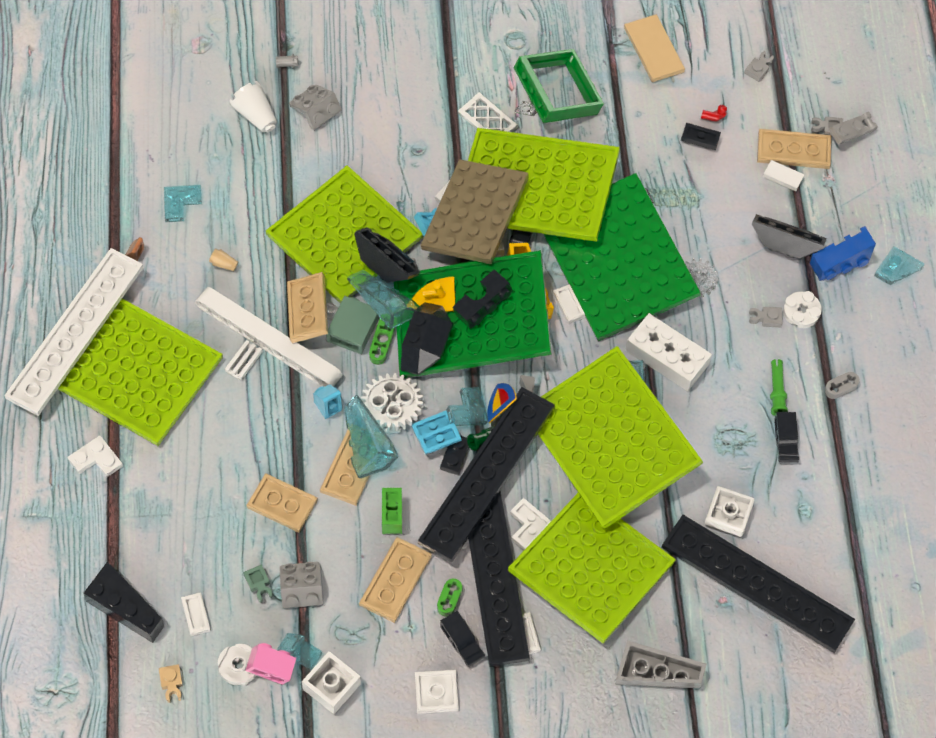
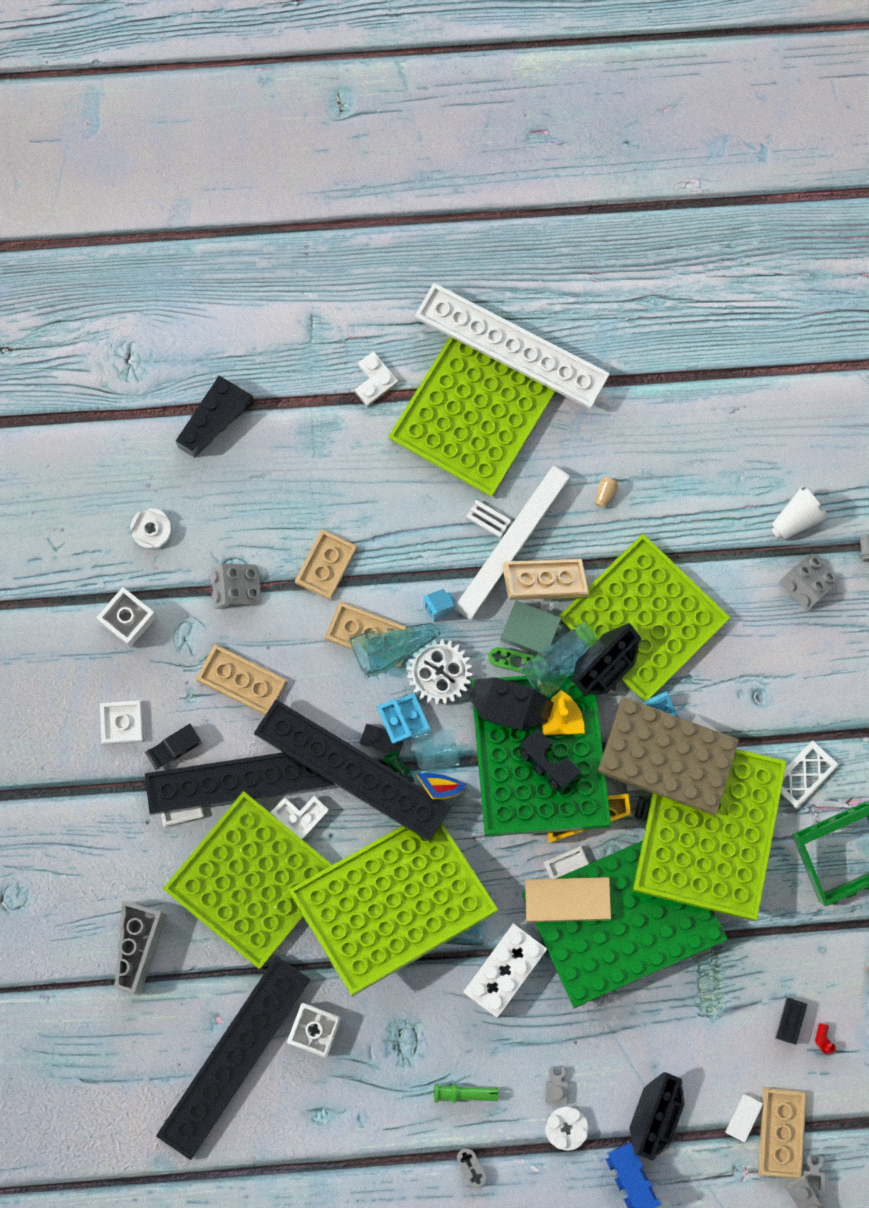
camera: 90 degrees right, 15 degrees up
(135, 249) = (616, 401): nougat slope -> none
(171, 679) = (137, 465): tan plate -> none
(178, 196) = (682, 438): clear light blue plate -> none
(195, 614) = (205, 486): white tile -> none
(258, 580) = (239, 542): sand green plate -> none
(271, 663) = (146, 558): bright pink brick -> none
(303, 652) = (167, 584): clear light blue slope -> none
(391, 510) = (311, 673): bright green brick -> none
(454, 598) = (222, 730): bright green beam -> none
(527, 382) = (459, 816): light grey slope -> none
(604, 297) = (567, 899): none -> tan tile
(786, 436) = (403, 1099): black piece -> none

